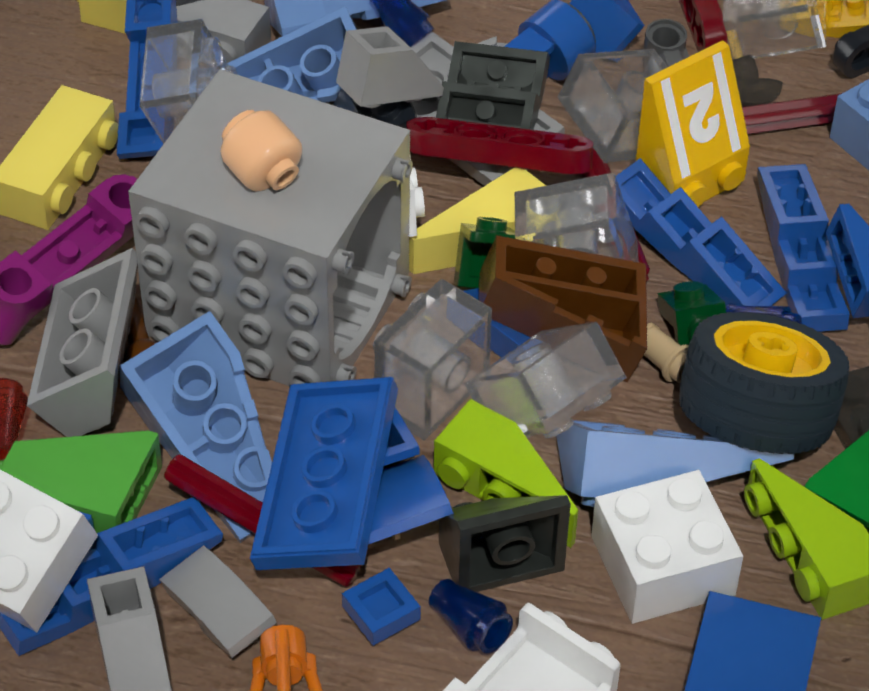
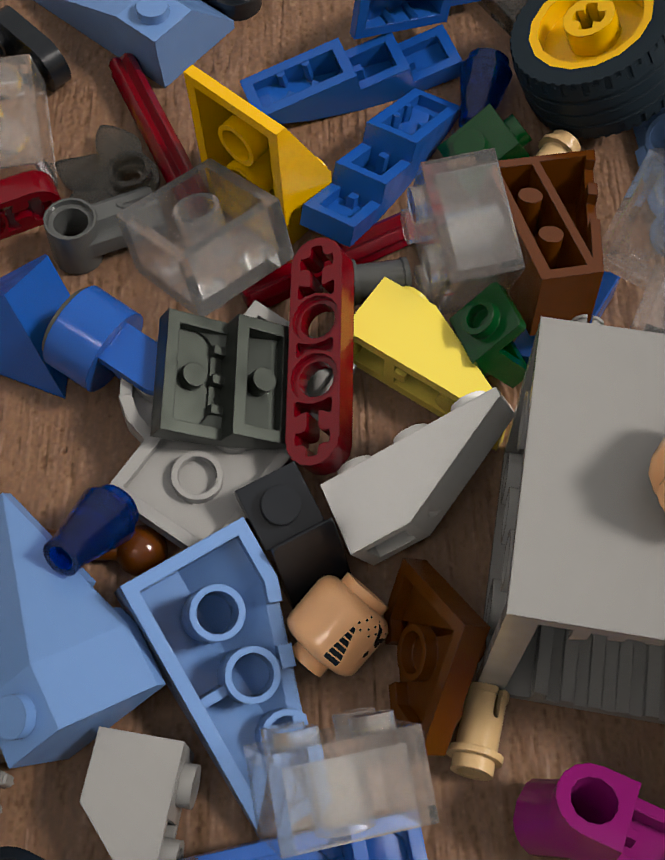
camera: 100 degrees left, 15 degrees up
(383, 69) = (273, 485): light grey slope -> none

